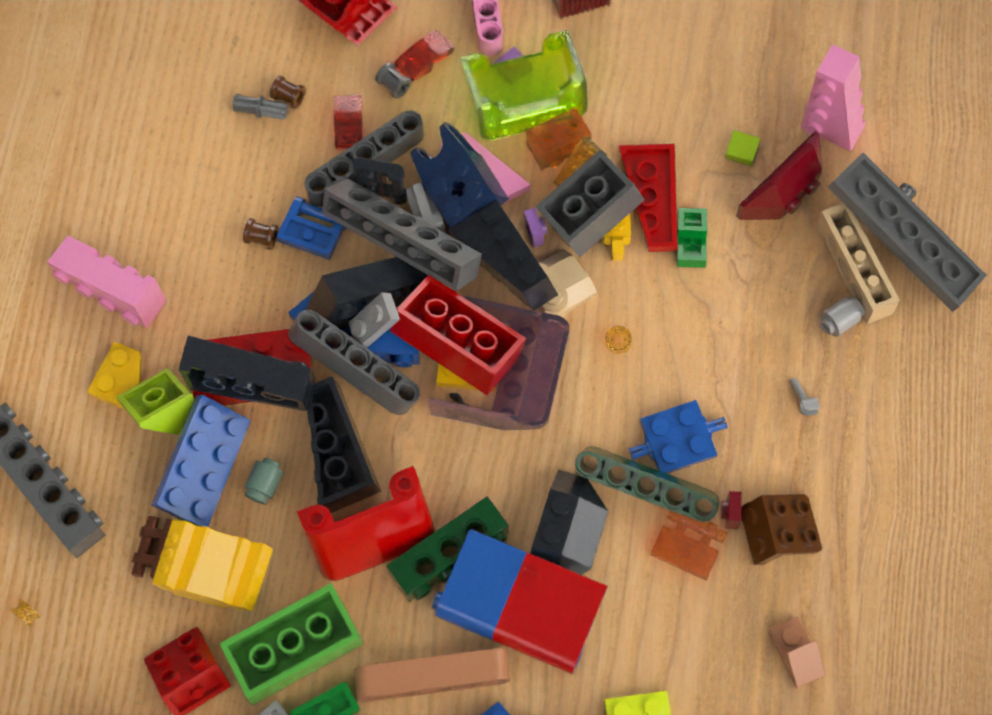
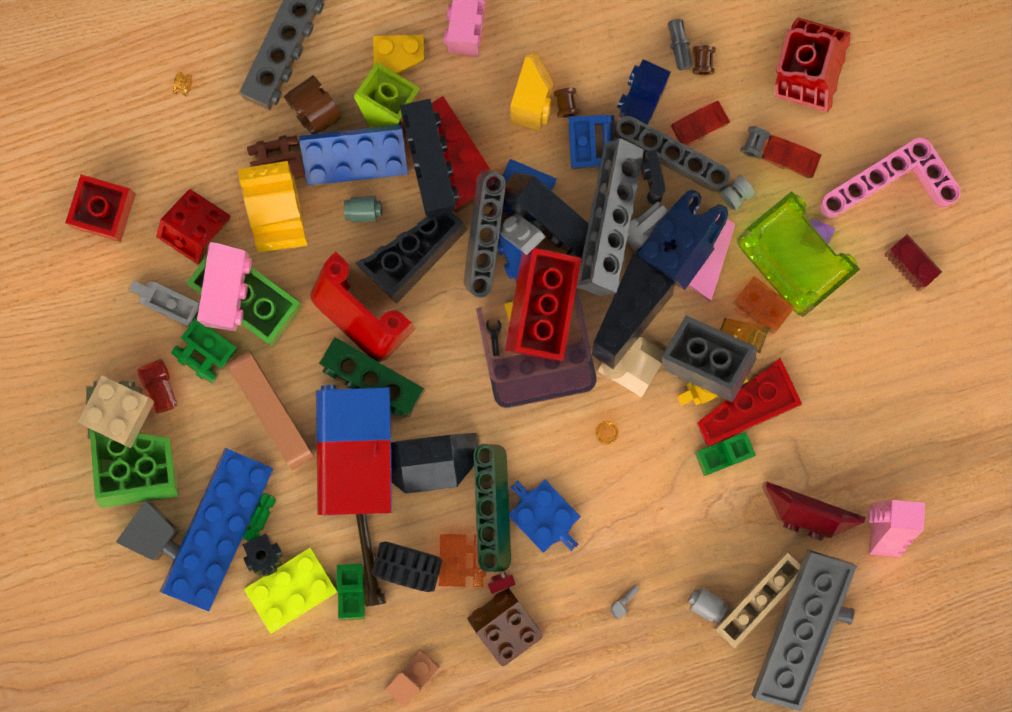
camera: 65 degrees right, 15 degrees up
(126, 479) = (313, 105): none -> reddish brown brick
(236, 254) = (532, 95): none -> yellow wedge
(275, 650) = (223, 287): none -> bright pink slope
(288, 152) = (646, 89): none -> clear blue brick
(434, 113) = (737, 193): none -> light grey wheel
(535, 227) = (673, 322): medium lavender plate -> none
(671, 676) = (350, 592): none -> green slope
(673, 595) = (406, 567): none -> black tyre
(687, 651) = (374, 594): none -> dark brown piece
(742, 148) = (828, 462): lime tile -> none

